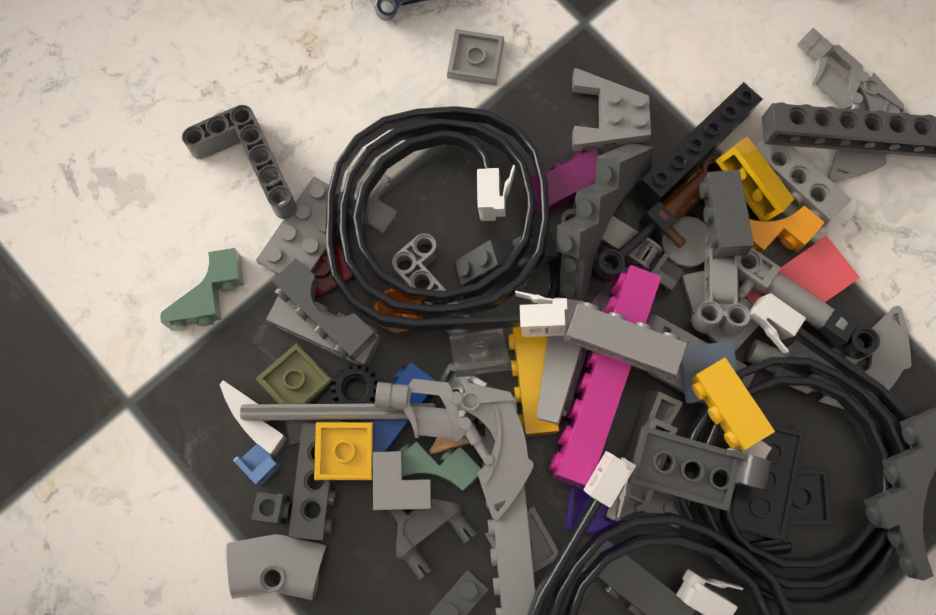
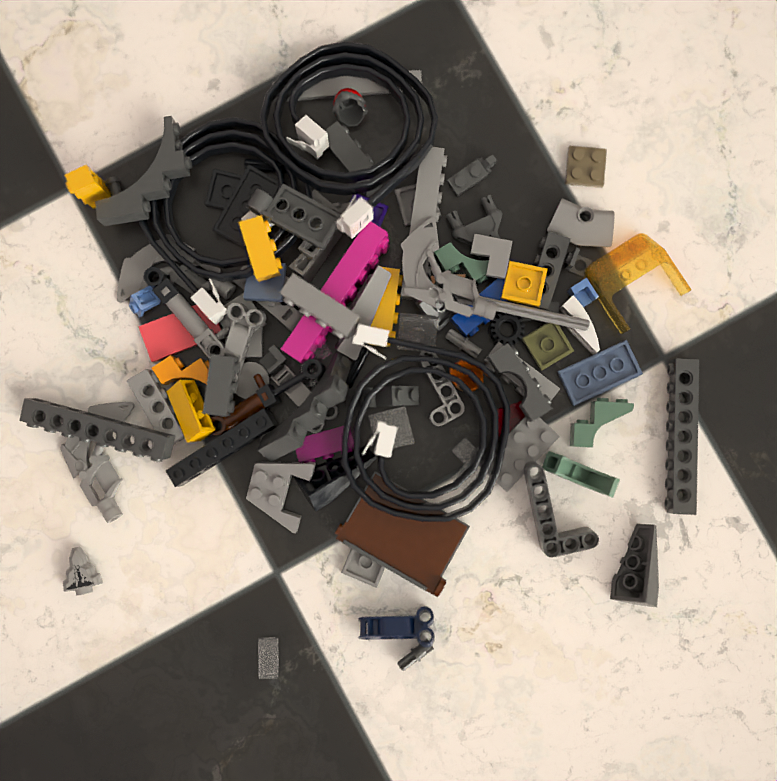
camera: 165 degrees left, 10 degrees up
(71, 211) = (689, 446): none -> dark grey brick
(124, 116) = (638, 574): none -> dark grey wedge
(200, 518) = (626, 265): none -> clear yellow windscreen
(214, 215) = (580, 474): none -> sand green arch
(214, 358) = (599, 373): none -> sand blue tile
(412, 355) = (463, 343): none -> light grey axle
(425, 75) = (403, 545): none -> reddish brown door
(478, 232) = (398, 418): none -> clear tile
(552, 135) = (330, 479): none -> black wedge
(867, 310) = (143, 301): none -> medium blue bracket

